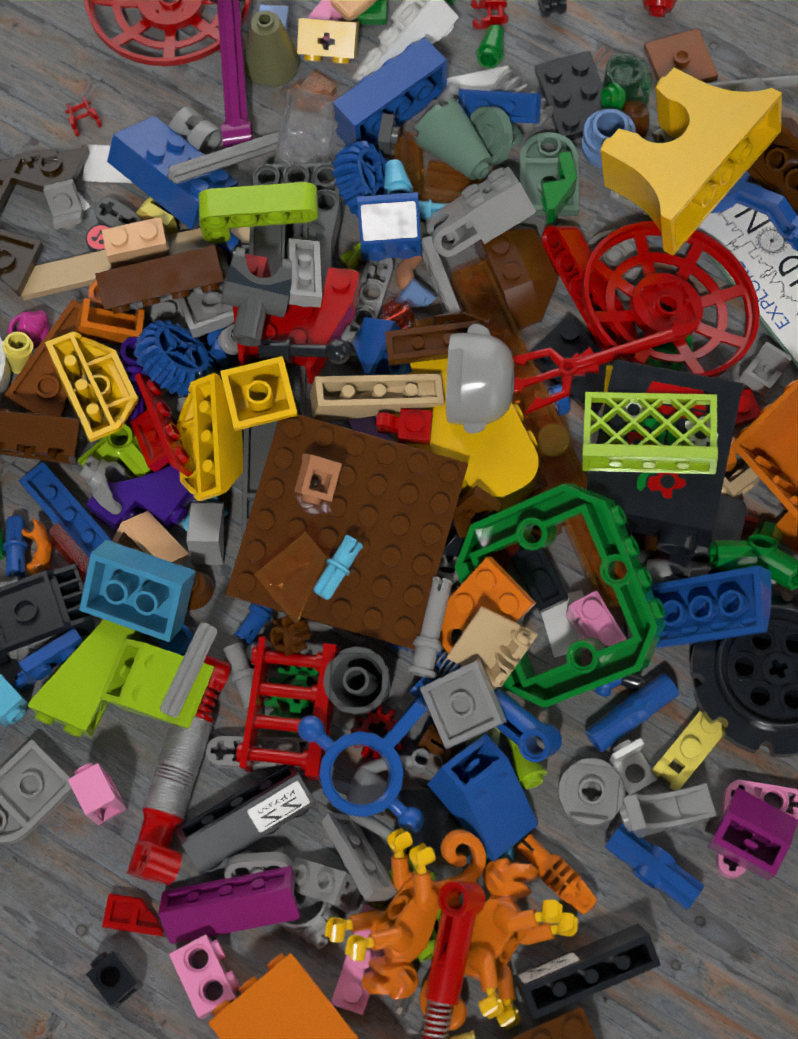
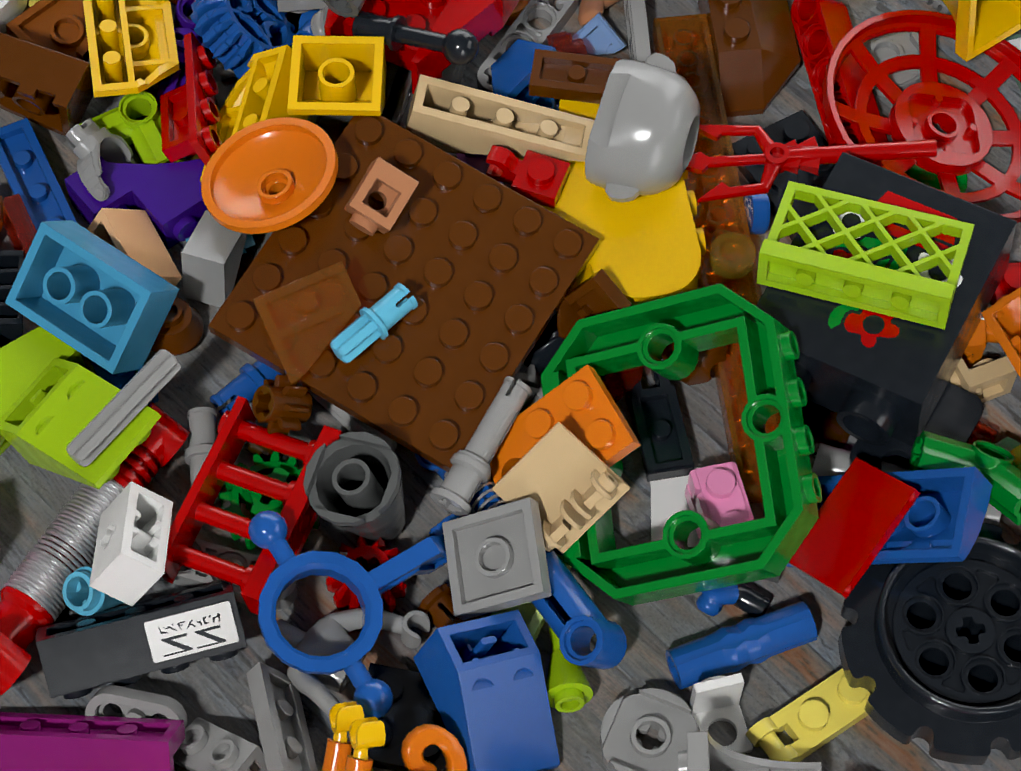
camera: 10 degrees right, 10 degrees down
(204, 793) = (82, 597): none -> medium azure cone
(222, 760) = (131, 544): none -> white brick
(224, 474) = (269, 175): none -> orange dish
(690, 613) = (853, 526): none -> red piece

